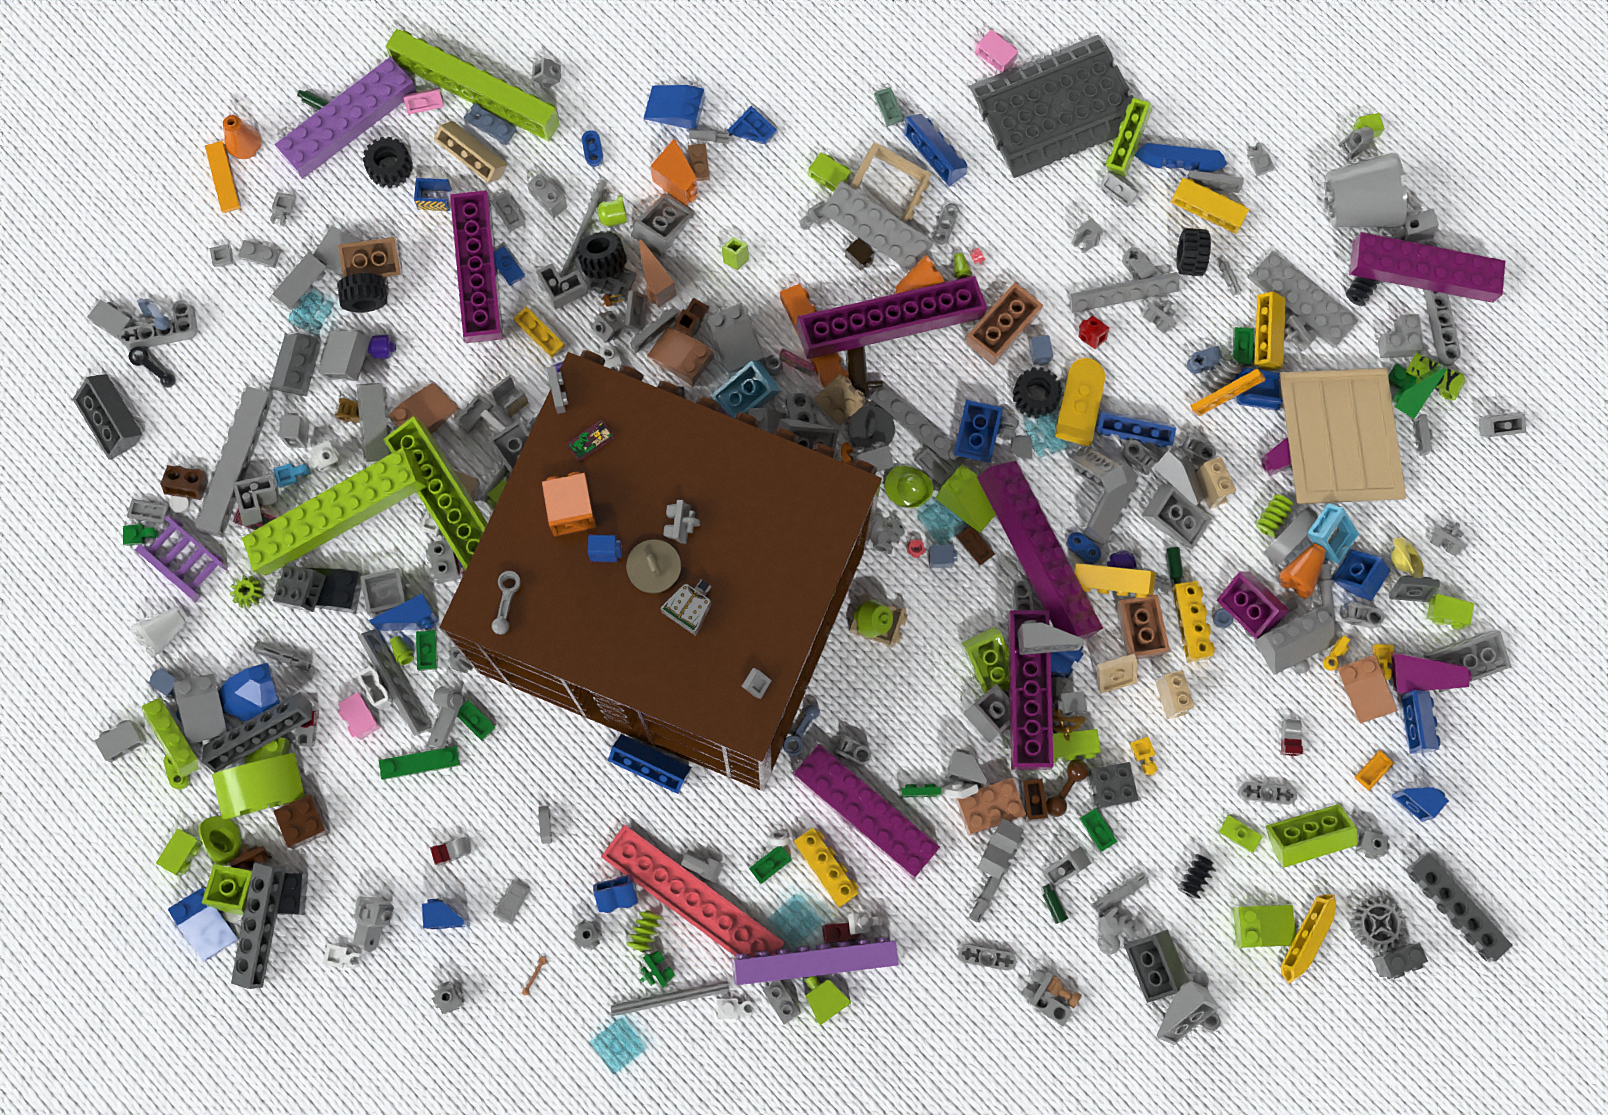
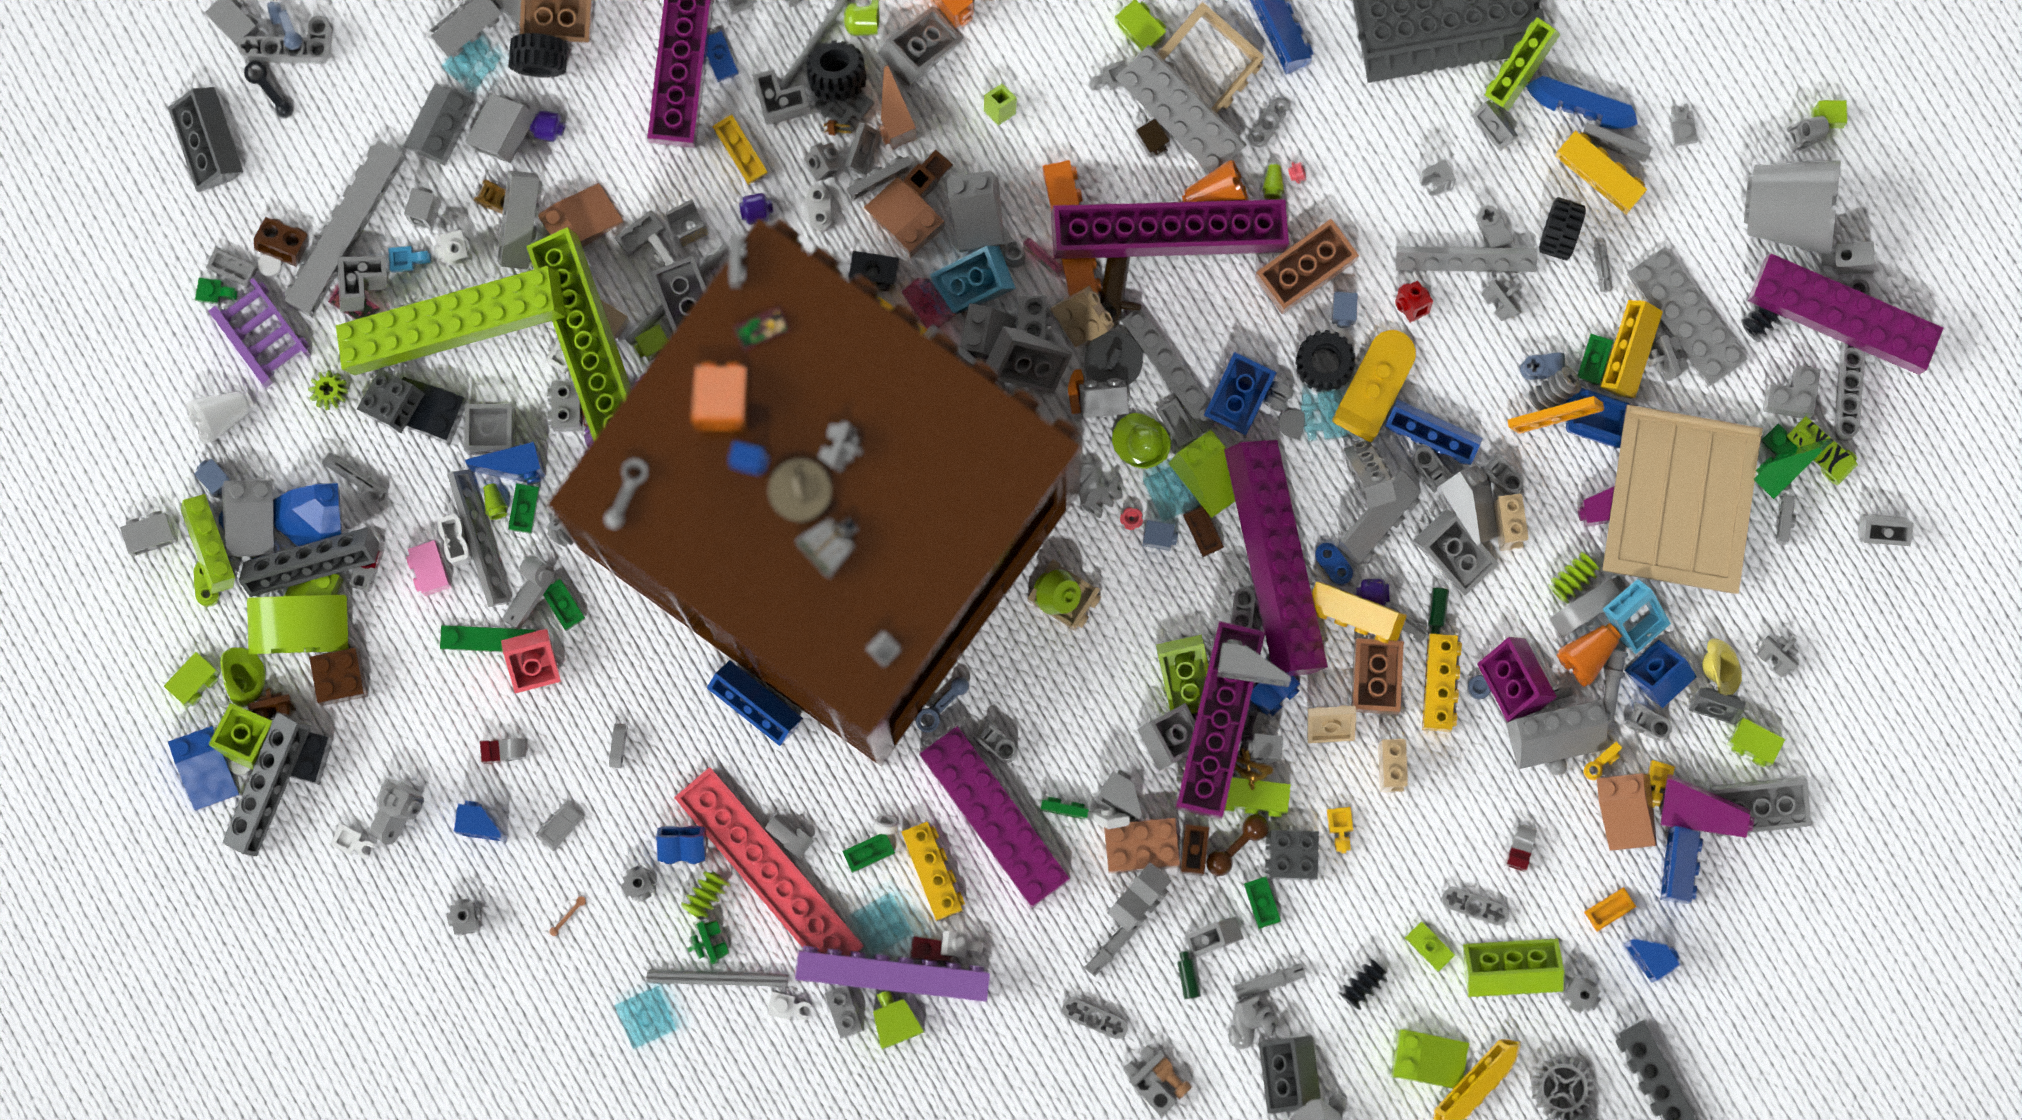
camera: 20 degrees right, 5 degrees up
(458, 771) = (530, 661): none -> coral brick

